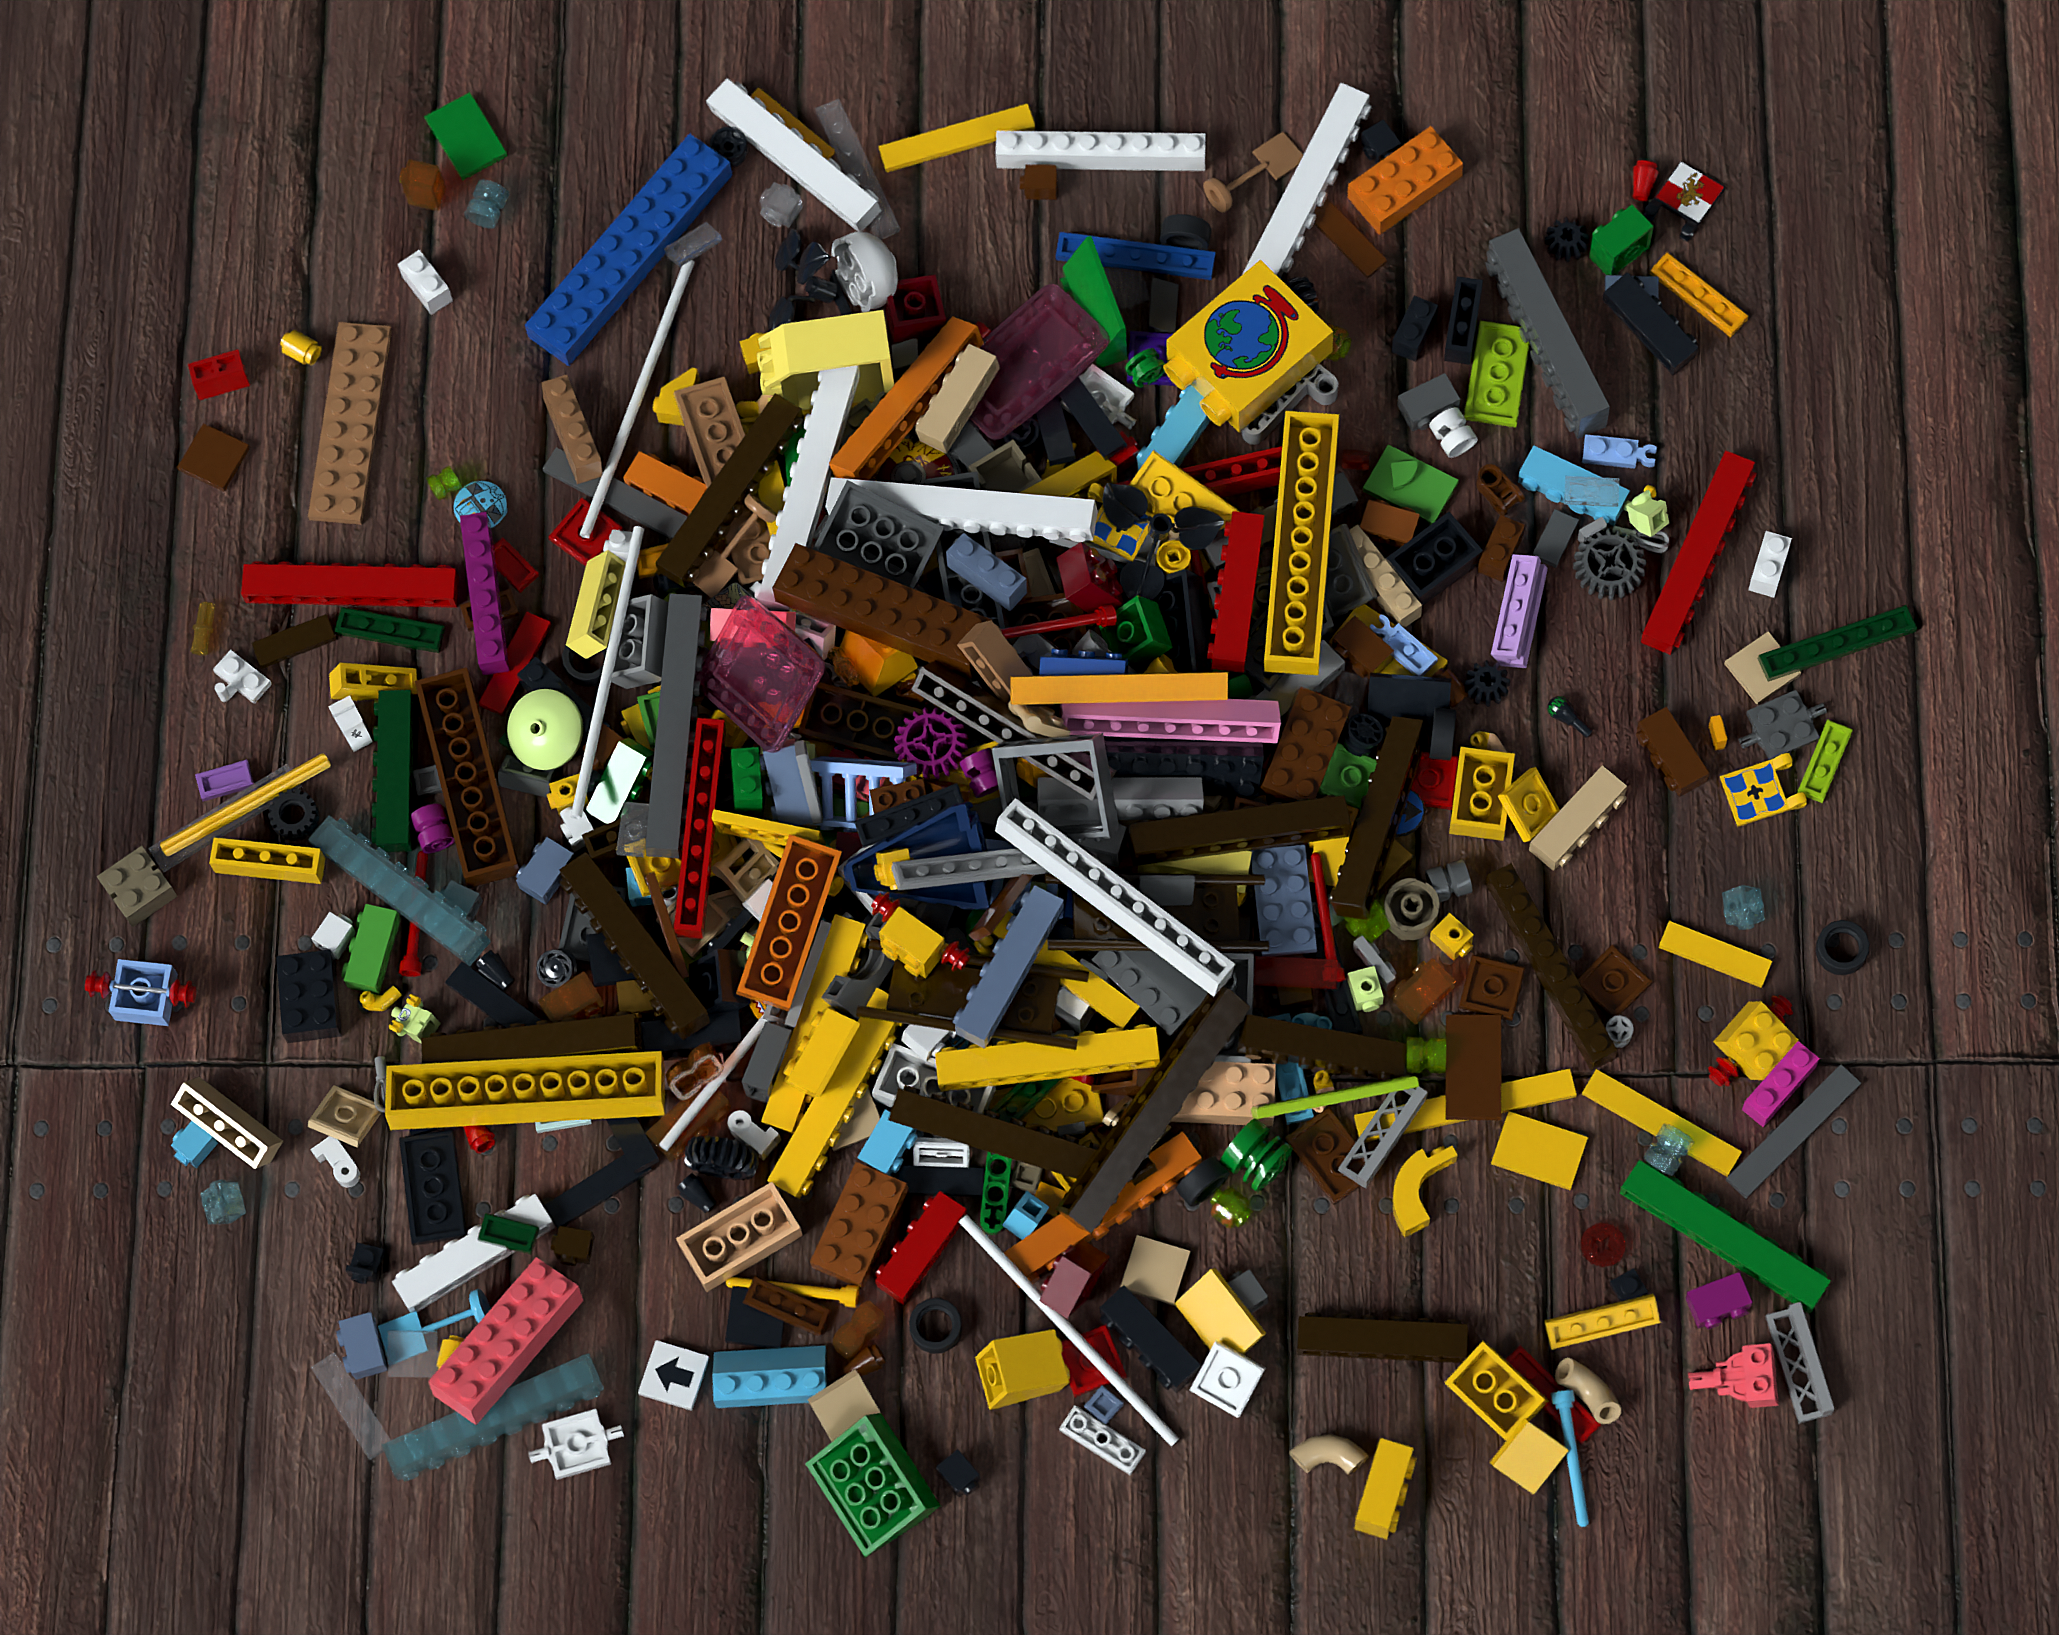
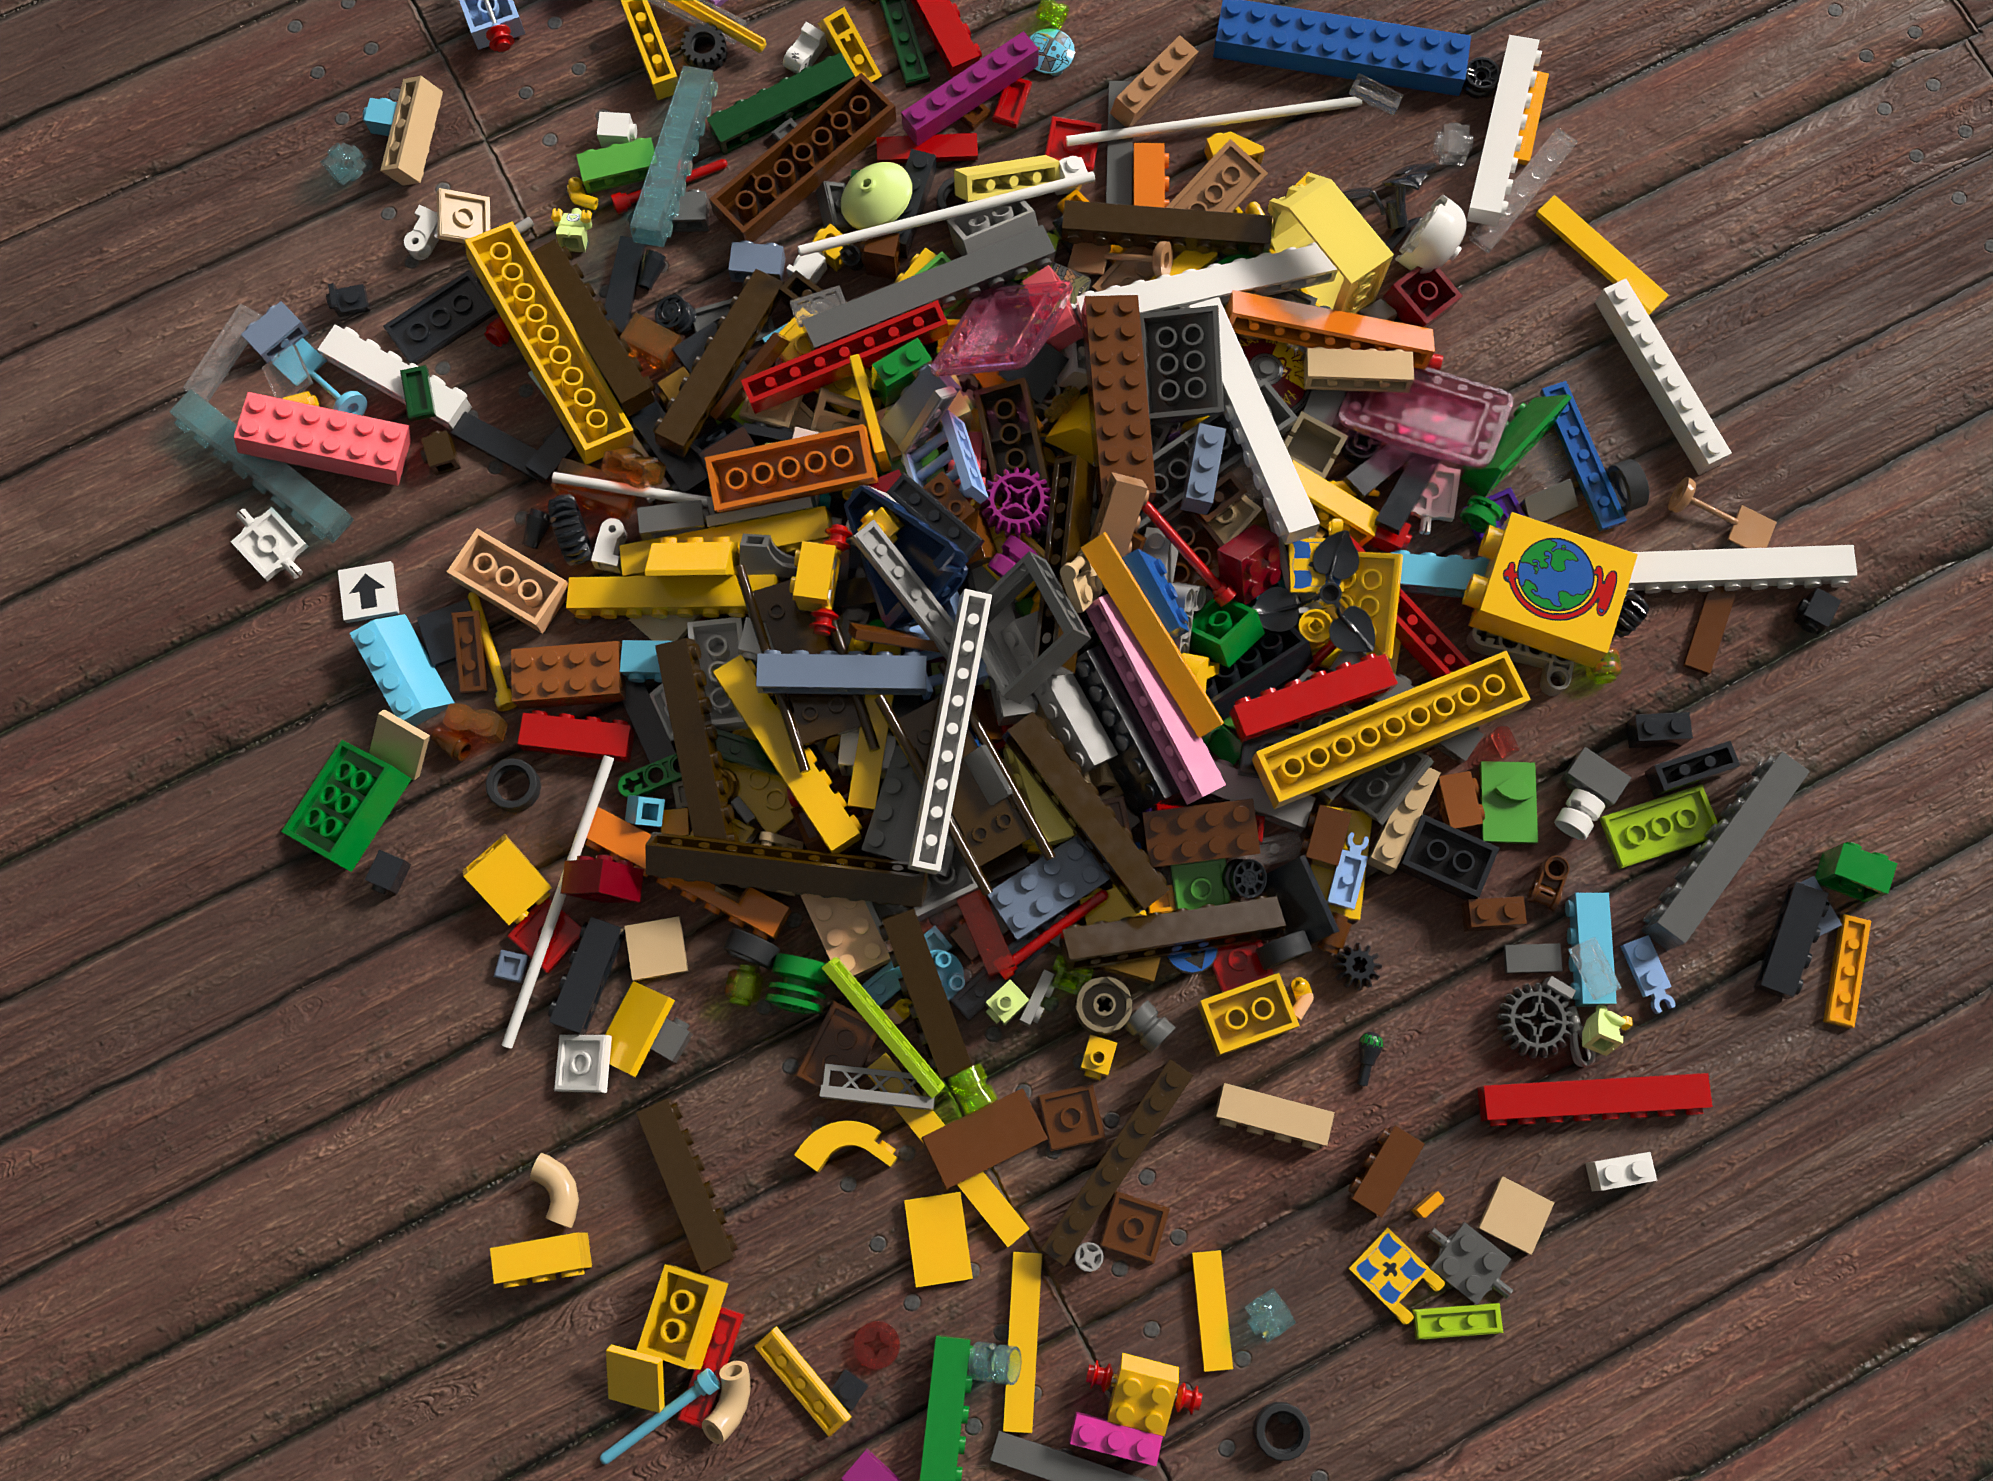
camera: 55 degrees right, 5 degrees up
(308, 996) = (552, 137): black brick -> none
(432, 826) = (746, 152): magenta wheel -> none
(621, 780) = (861, 274): brick -> none
(1039, 182) = (1602, 341): reddish brown brick -> none
(1116, 1450) = (477, 999): white tile -> none
(1405, 180) = (1796, 650): orange brick -> none
(1423, 990) = (1034, 1055): clear orange brick -> none
(1519, 611) = (1442, 960): lavender brick -> none
(1529, 804) = (1259, 1063): yellow tile -> none
(1569, 231) = (1833, 815): black gear -> none
(1643, 179) = (1929, 863): red cone -> none
(1686, 195) = (1938, 912): flag -> none
(1837, 643) = (1580, 1275): dark green tile -> none

